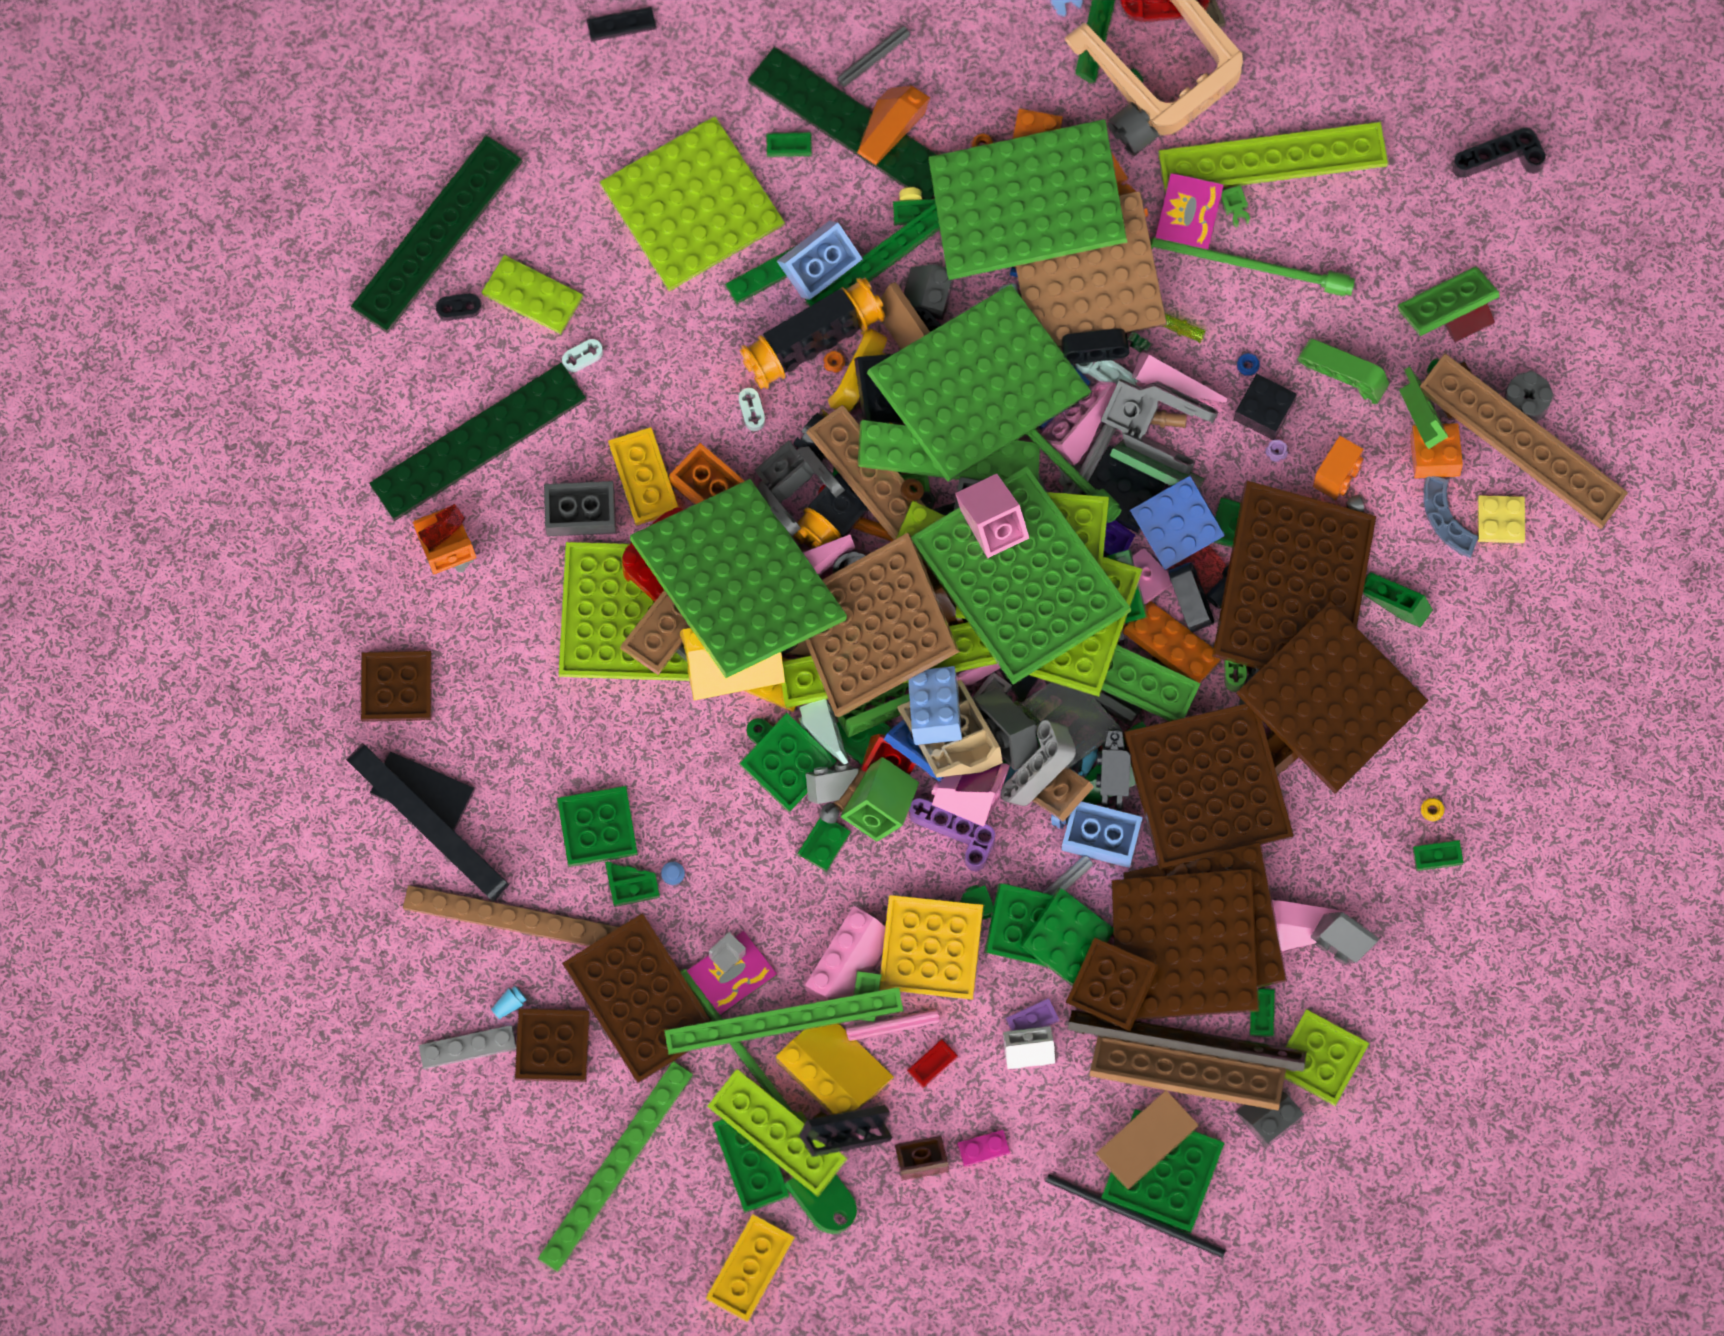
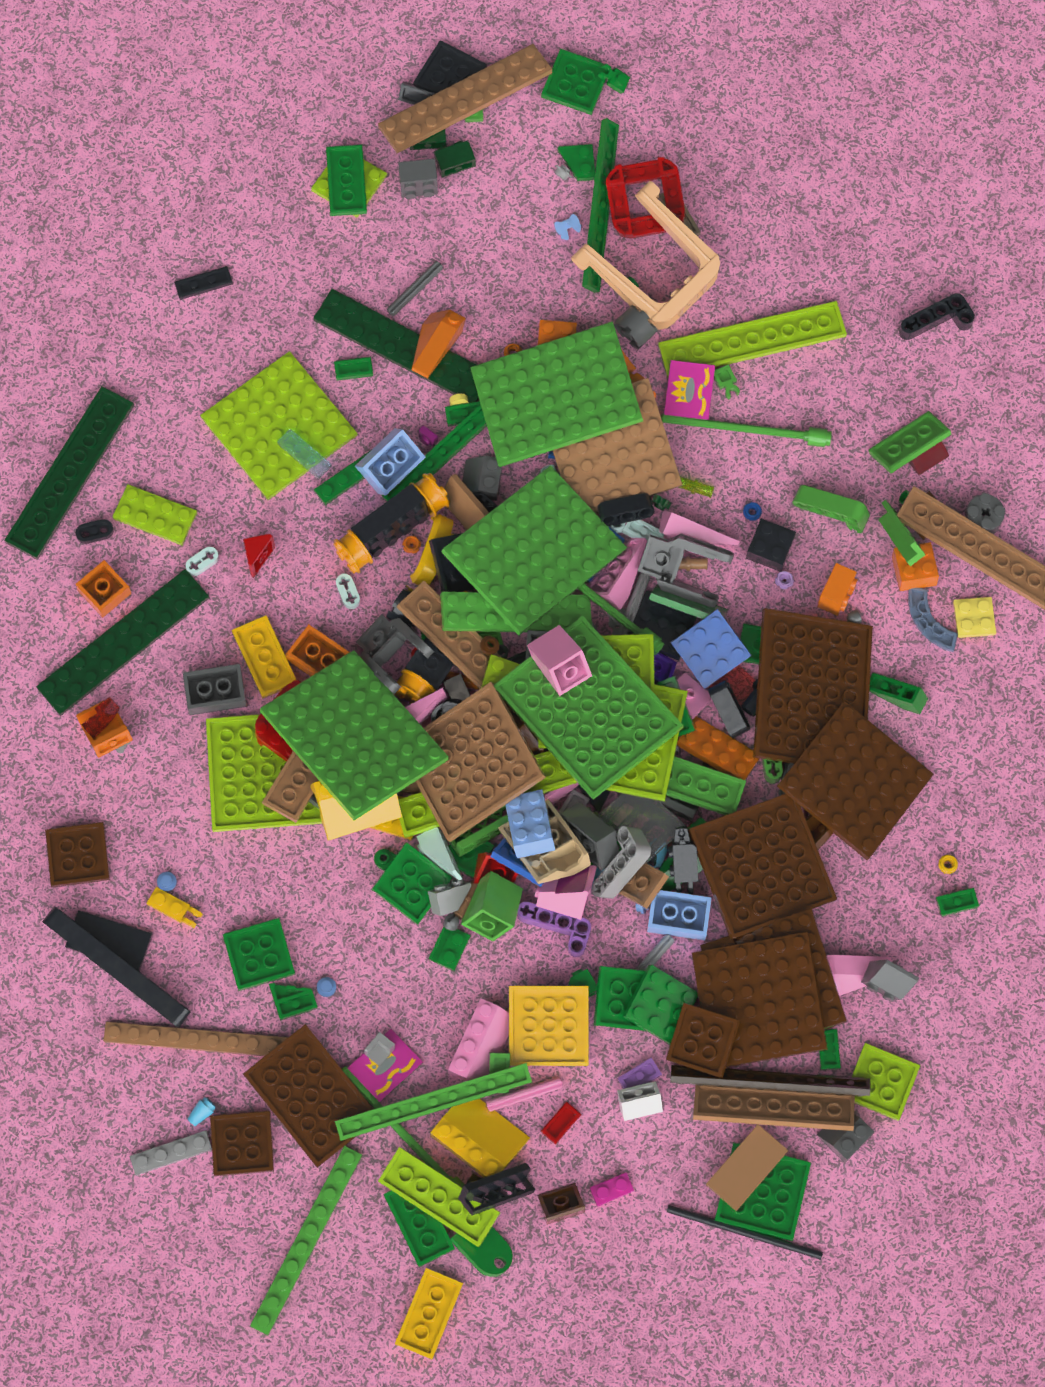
camera: 10 degrees left, 0 degrees up
(461, 375) = (103, 588): none -> orange brick
(498, 729) = (166, 881): none -> medium blue plate
(501, 760) = (172, 907): none -> yellow hinge
(650, 350) = (258, 551): none -> red slope
(718, 240) = (304, 454): none -> clear light blue tile
(868, 235) = (427, 437): none -> magenta plate
(868, 537) = (457, 688): none -> black tile

